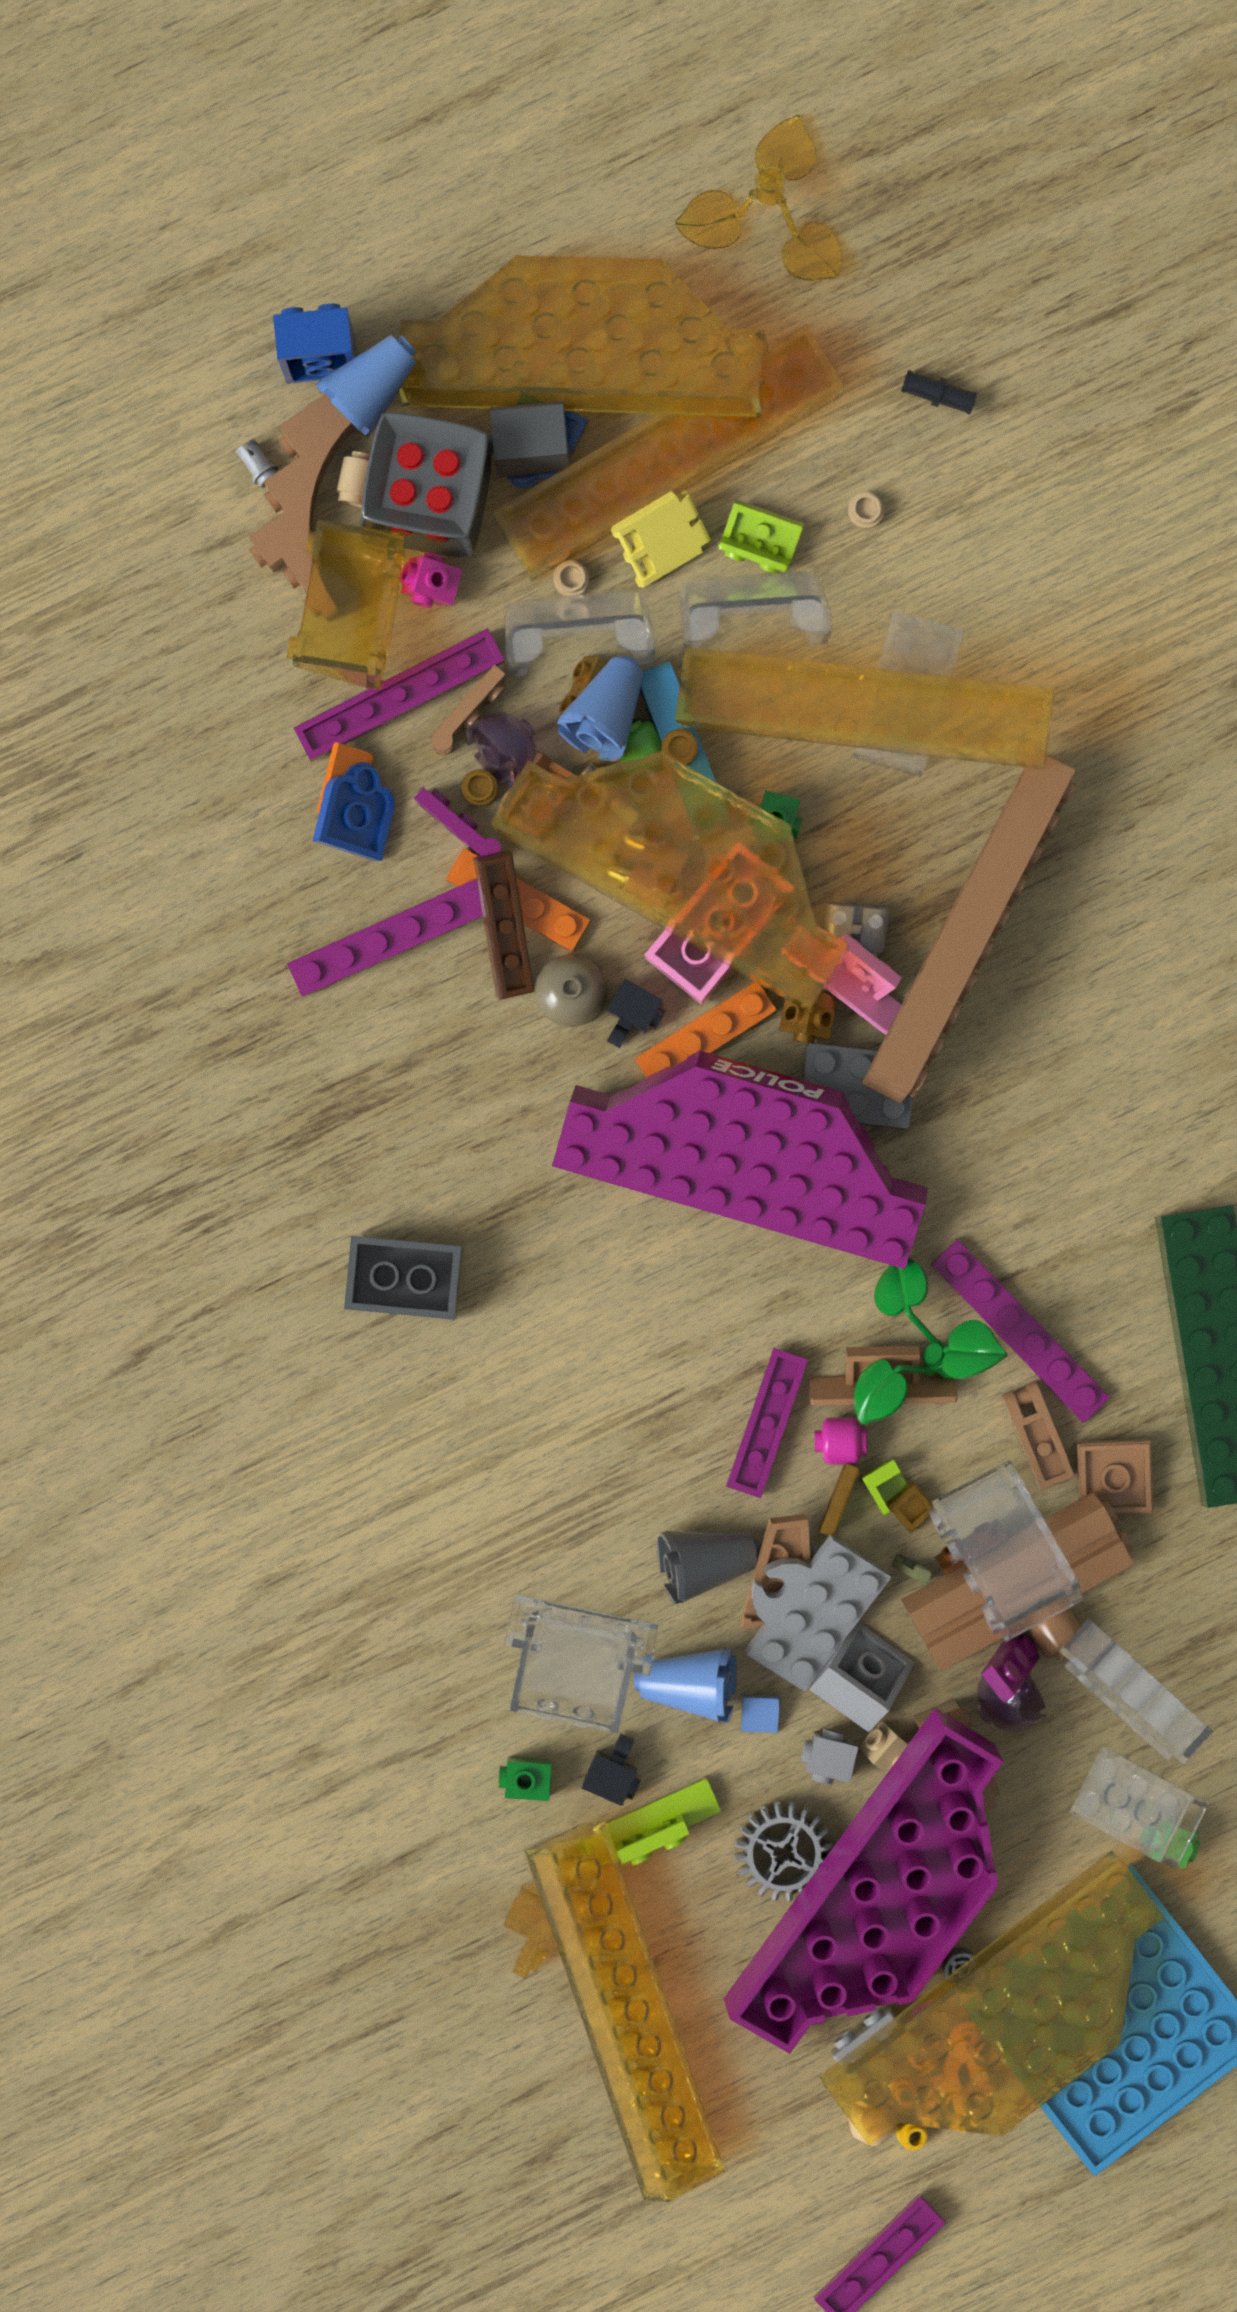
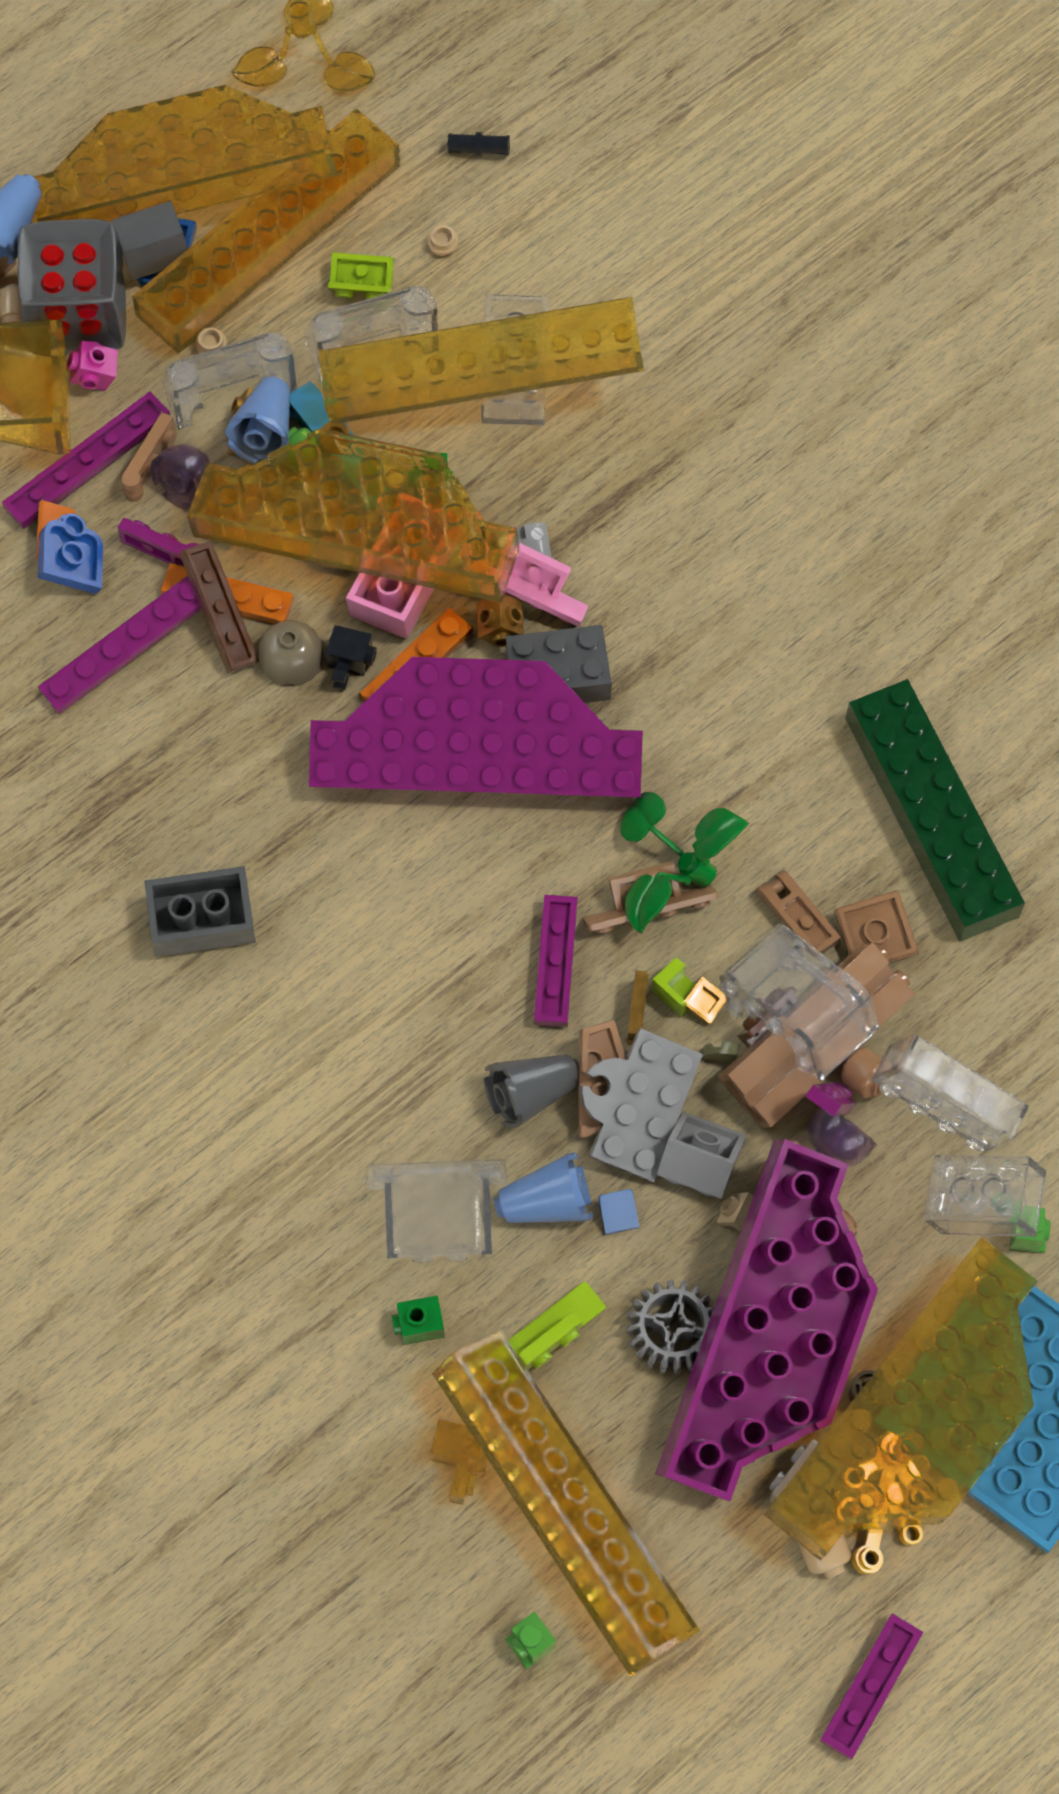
camera: 15 degrees left, 20 degrees down
(479, 787) = (172, 515): pearl gold plate -> none
(557, 2131) = (531, 1640): none -> bright green brick
(611, 1776) = (496, 1298): black brick -> none
(662, 536) = (278, 289): light yellow plate -> none
(829, 1756) = (692, 1231): light grey brick -> none
(841, 1440) = (625, 956): dark pink head -> none
(966, 931) = (616, 514): medium nougat brick -> none
(1020, 1331) = (762, 836): magenta plate -> none

